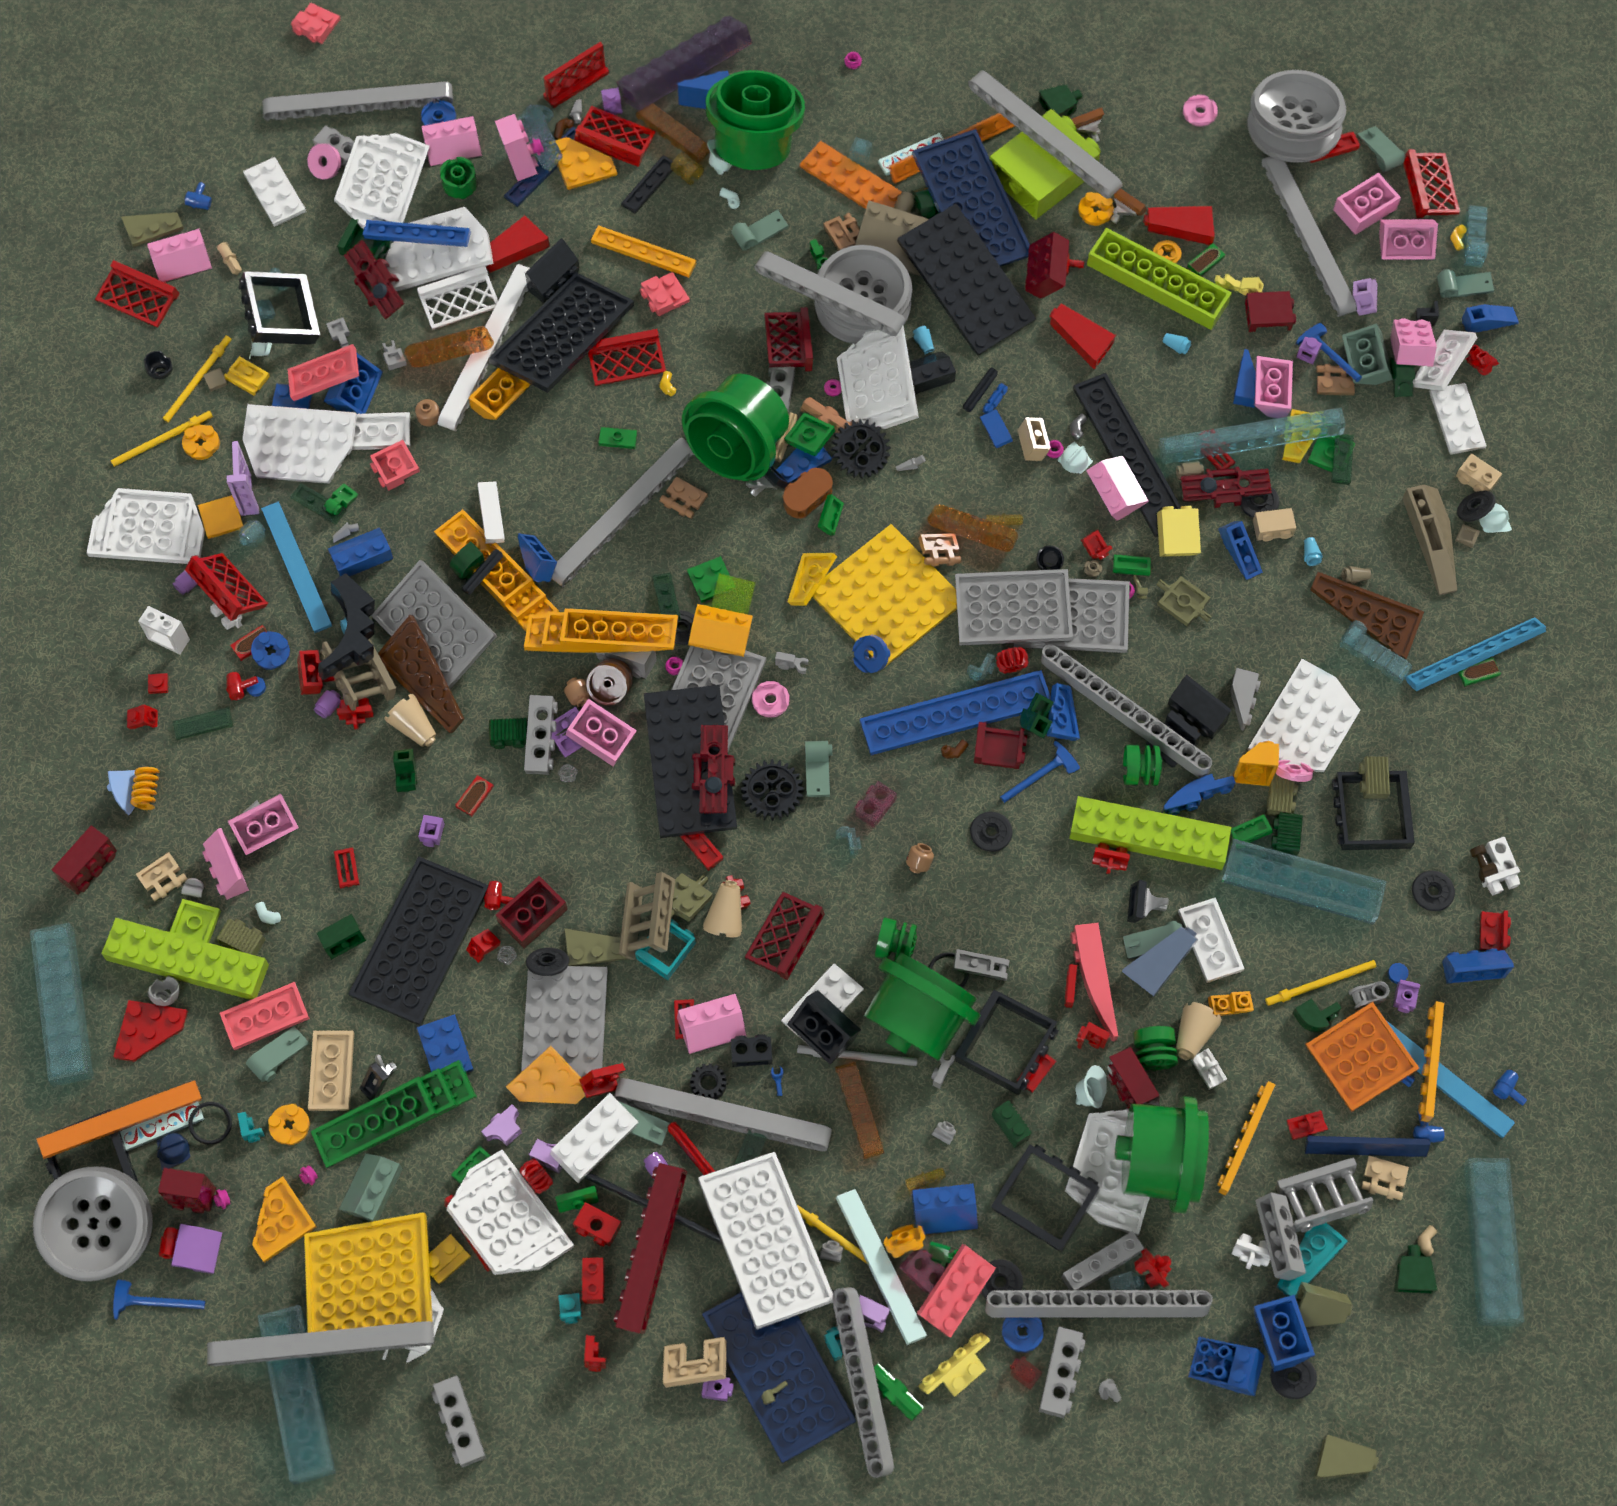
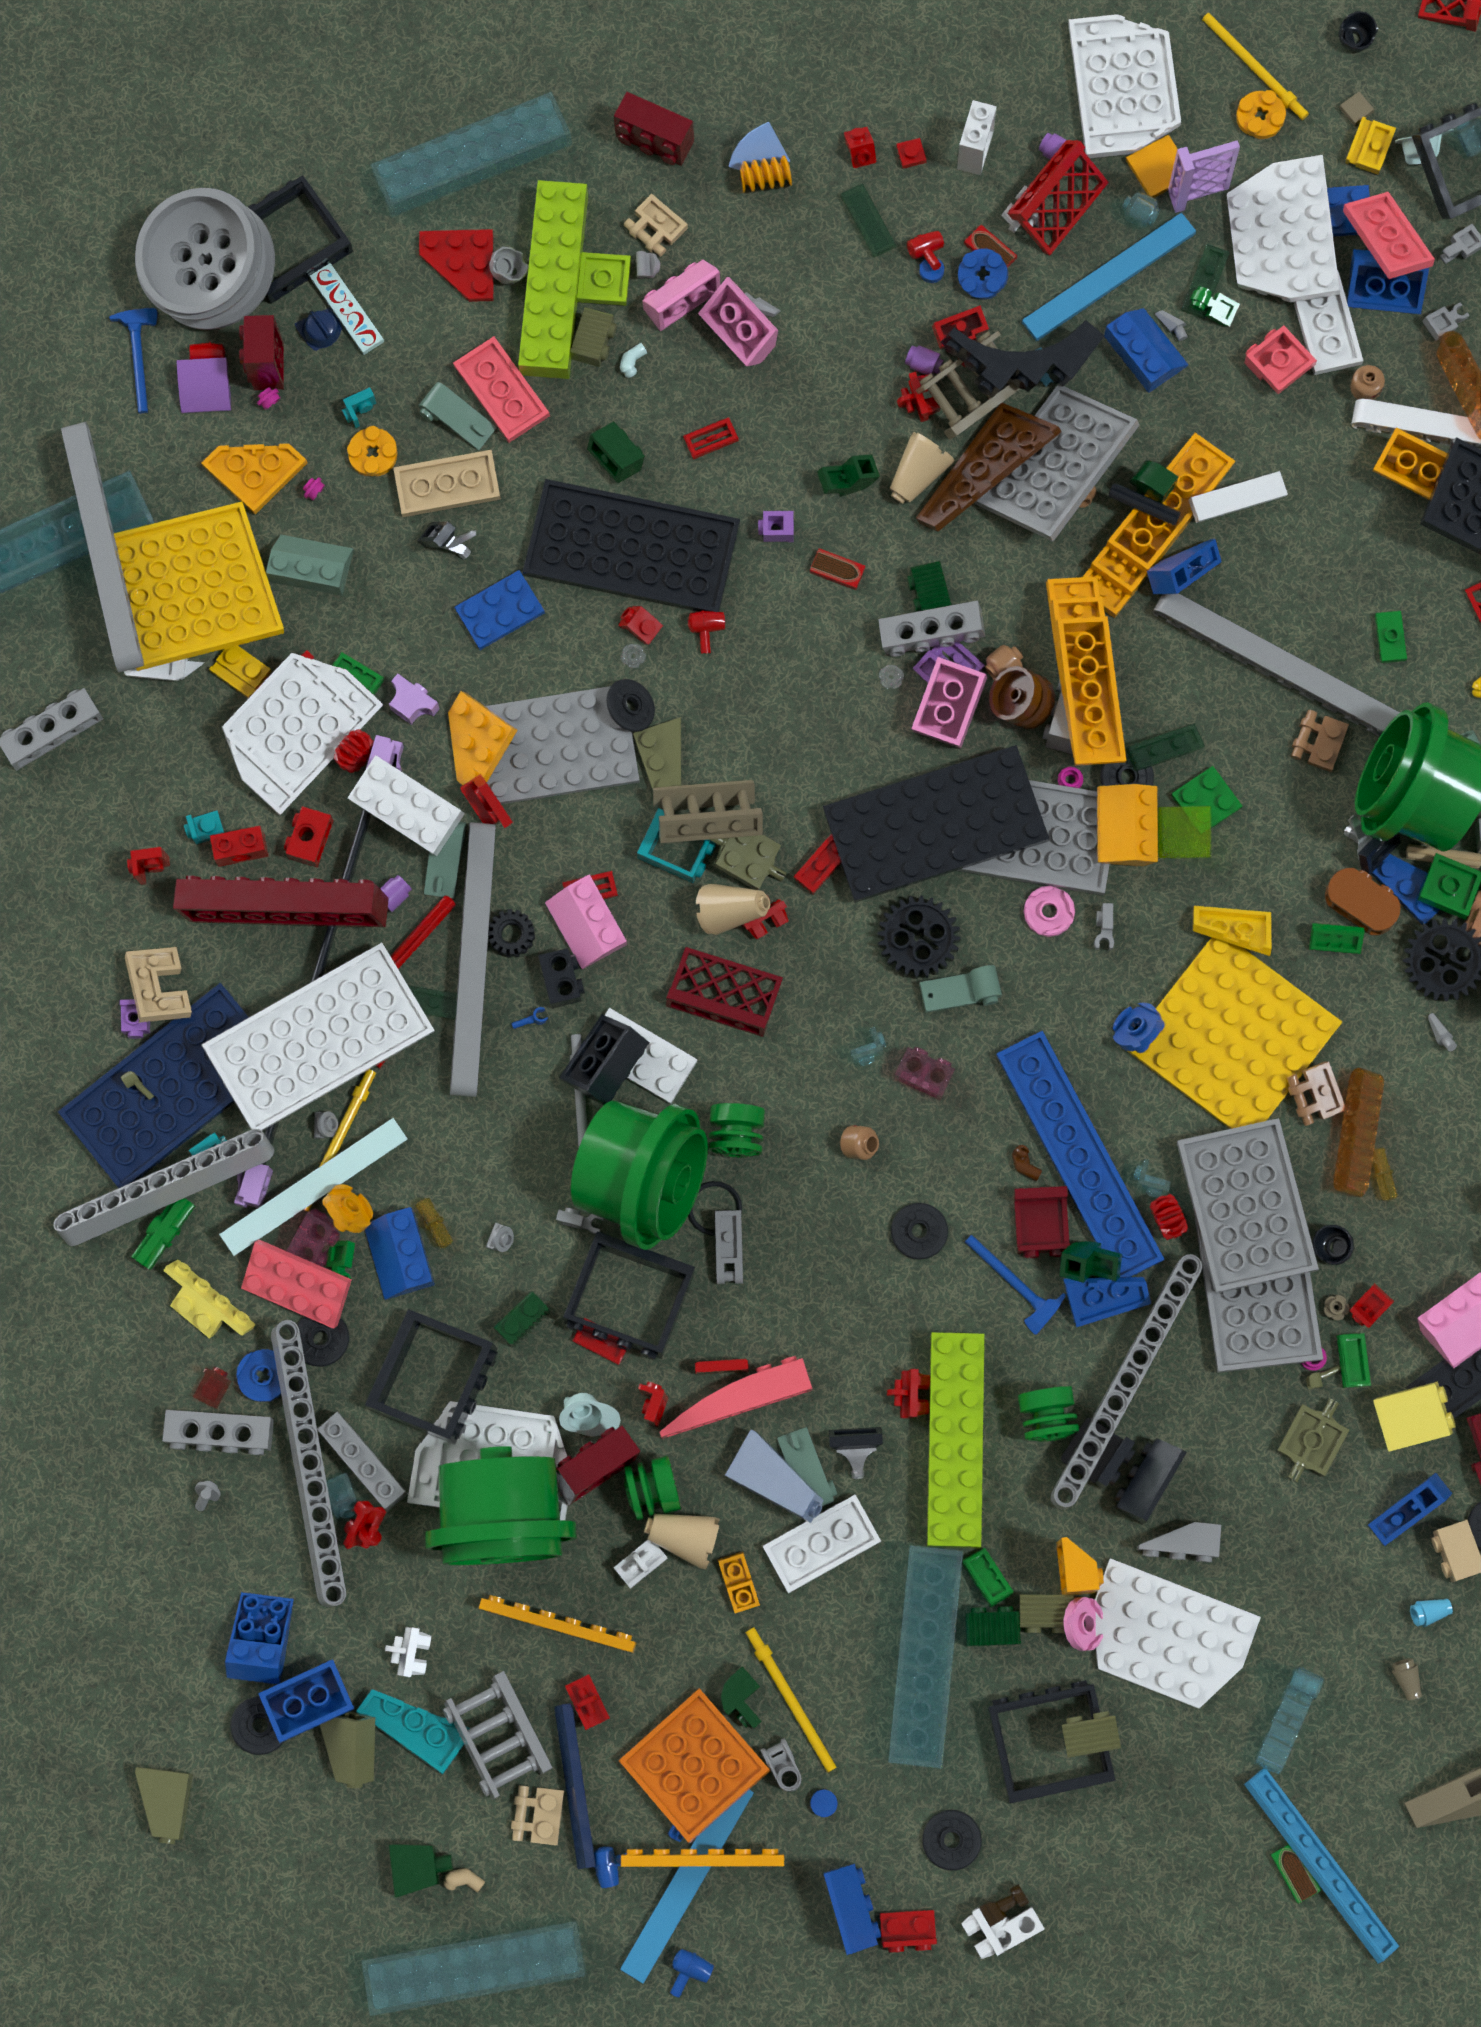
camera: 85 degrees right, 10 degrees up
(119, 1119) = (338, 256): orange tile -> none
(210, 1142) = (380, 365): black tyre -> none
(217, 352) = (1399, 101): yellow bar -> none
(393, 1113) = (405, 568): green slope -> none
(531, 912) = (690, 671): dark red brick -> none
(576, 1199) = (336, 806): green plate -> none
(720, 769) = (921, 859): dark red piece -> none
(860, 1110) = (508, 1124): clear orange beam -> none
(1190, 795) = (1020, 1486): blue slope -> none
(1280, 1236) = (430, 1683): light grey brick -> none
(1386, 619) = (1349, 1721): reddish brown wing -> none
(1401, 1002) = (801, 1814): medium lavender brick -> none

